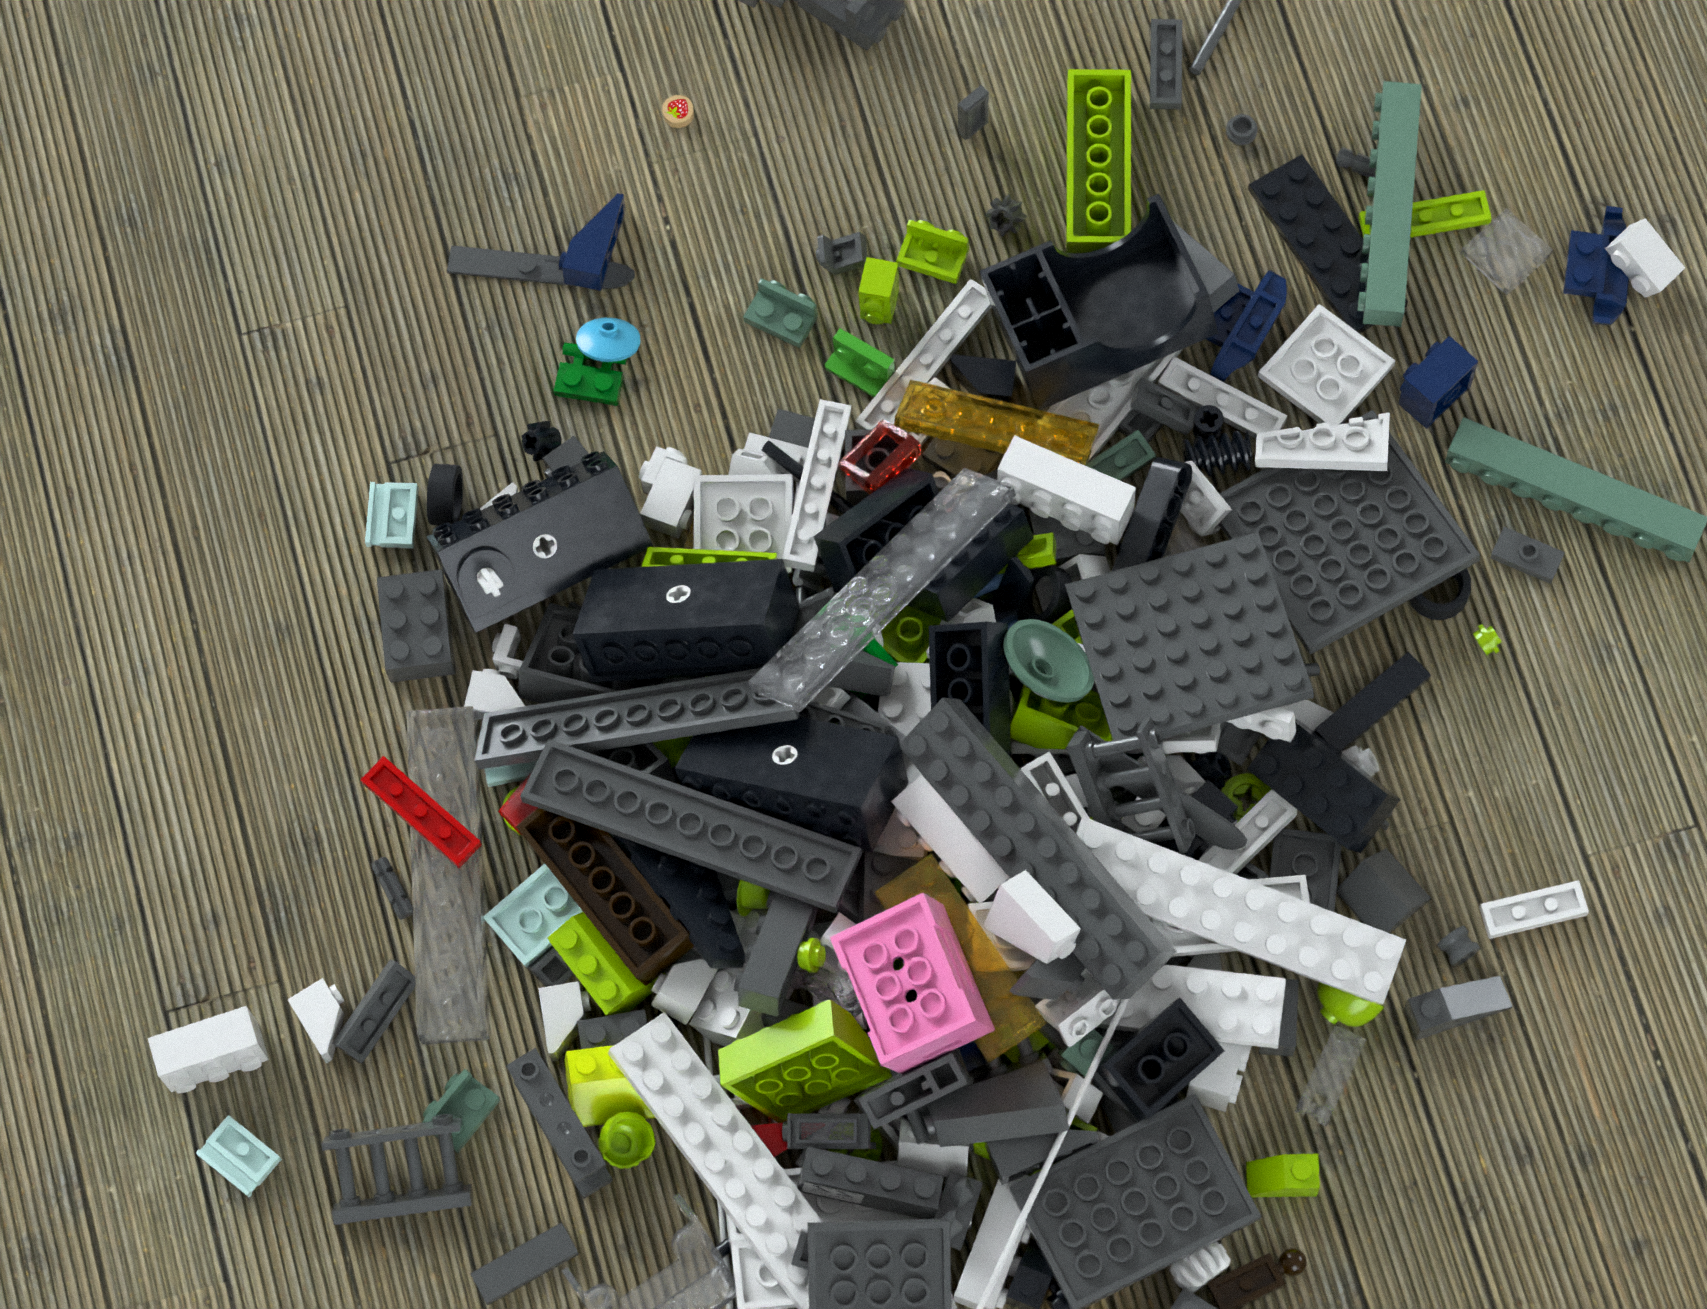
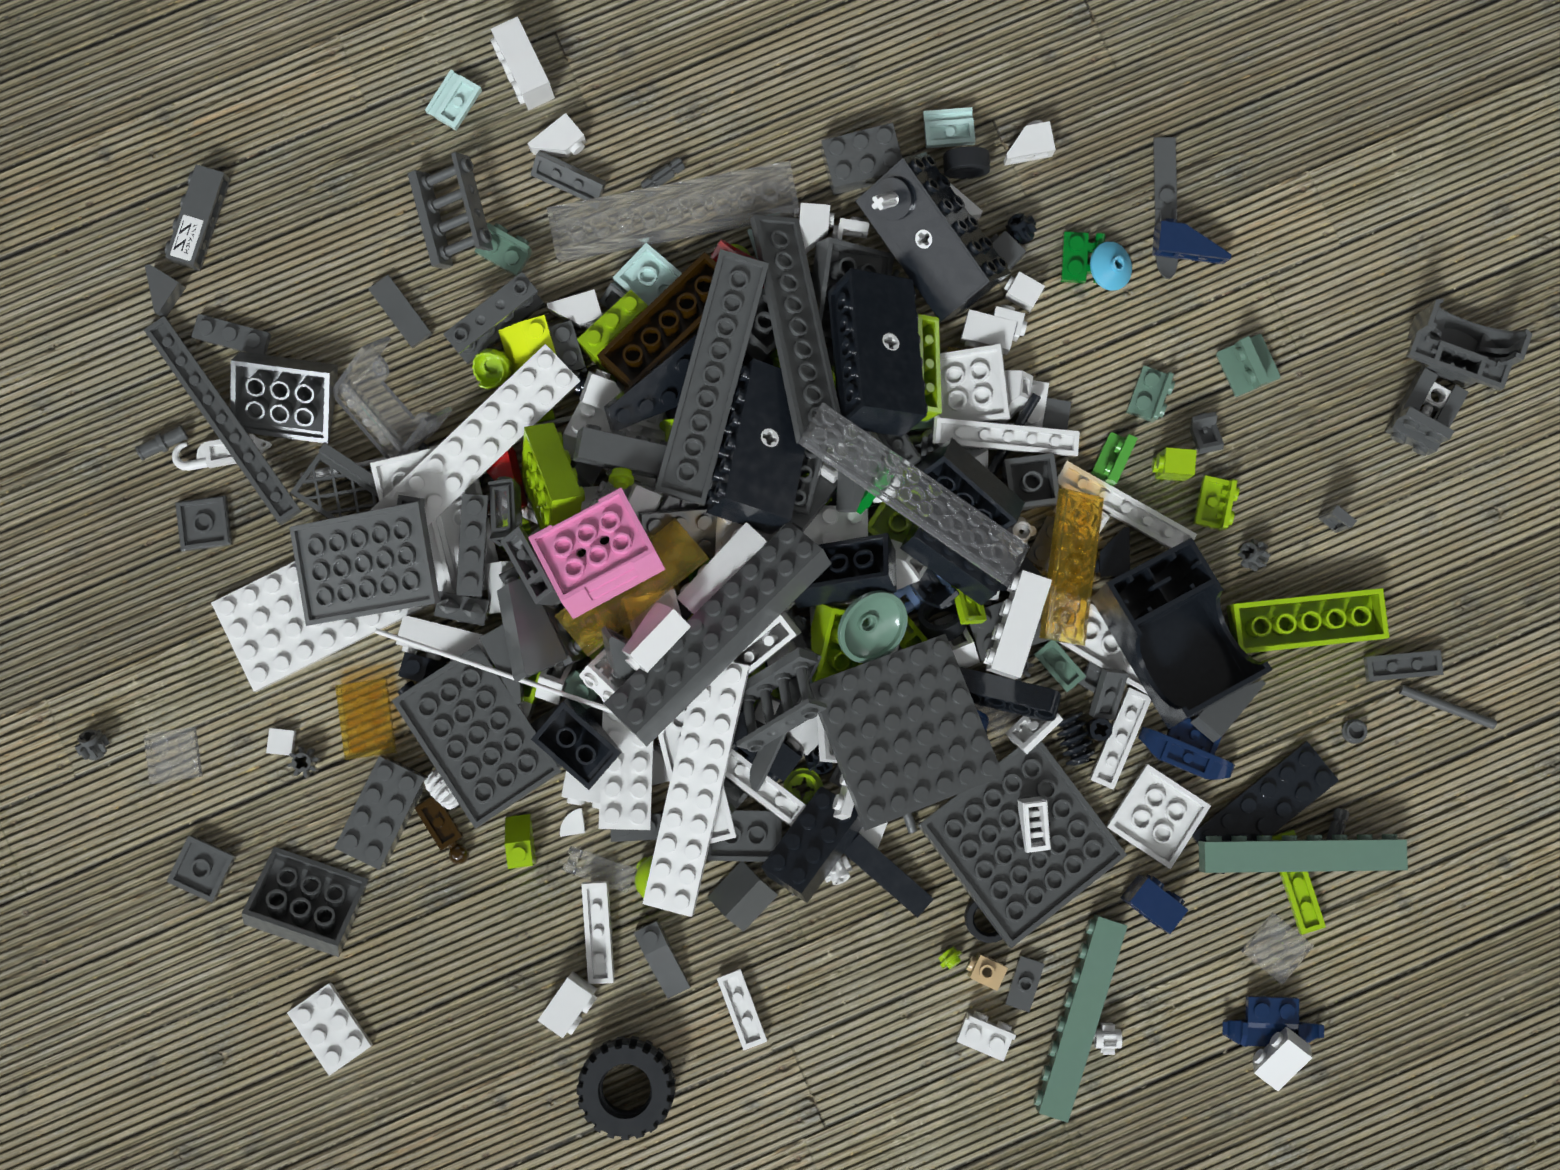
camera: 75 degrees right, 15 degrees up
(421, 812) = (710, 182): red plate -> none
(430, 415) = (1032, 144): none -> white slope
(626, 446) = (1023, 291): none -> white brick
(678, 111) = (1311, 292): tan tile -> none
(761, 195) = (1248, 365): none -> sand green bracket
(896, 462) = (1026, 492): clear red tile -> none
(1265, 1104) = (573, 823): none -> white tile
(1309, 520) = (1043, 823): none -> white slope
(1337, 447) = (1090, 834): white wing -> none
(1415, 1083) = (598, 932): none -> white plate
(1458, 946) = (706, 955): dark grey wheel -> none
(1507, 596) = (986, 971): none -> tan brick
(1510, 1128) = (570, 1000): none -> white brick
(1591, 610) = (985, 1036): none -> white bracket
(1606, 458) = (1108, 1038): none -> white gear
(1650, 1029) = (626, 1122): none -> black tyre

